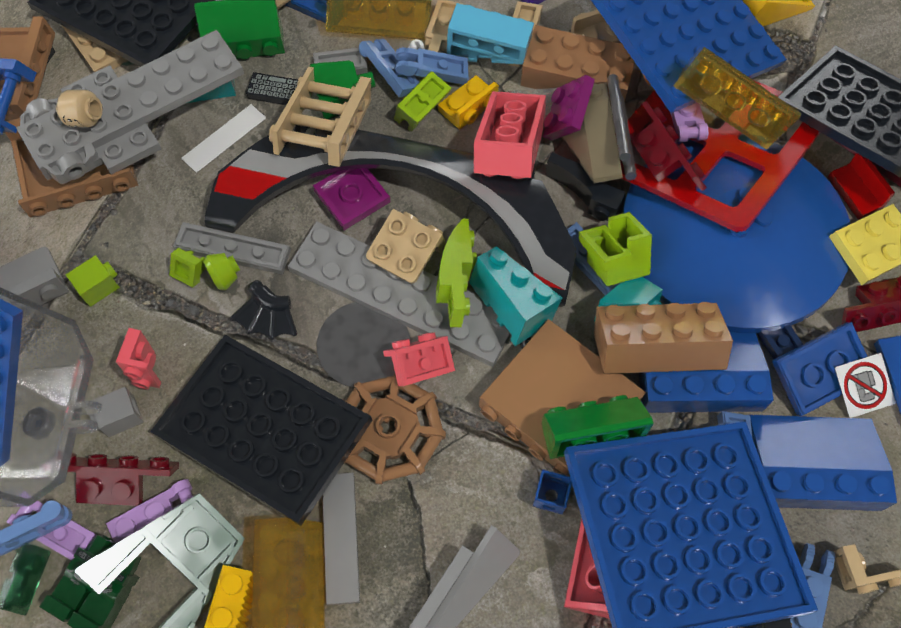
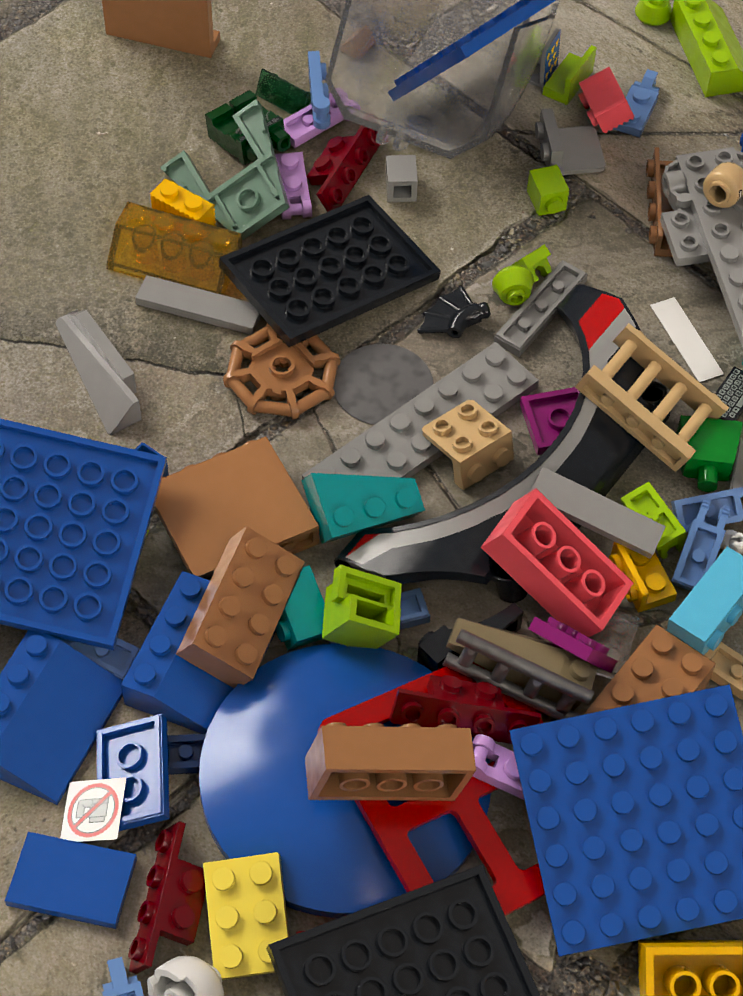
camera: 110 degrees right, 10 degrees down
(137, 360) = (439, 194): coral bracket -> none
(420, 359) = (335, 408): coral bracket -> none
(449, 125) = (600, 513): none -> light grey tile
(455, 272) = (409, 455): lime slope -> none
(594, 423) = (177, 497): green slope -> none
(735, 98) = (492, 791): clear yellow slope -> none
(759, 160) = (389, 762): none -> medium nougat brick

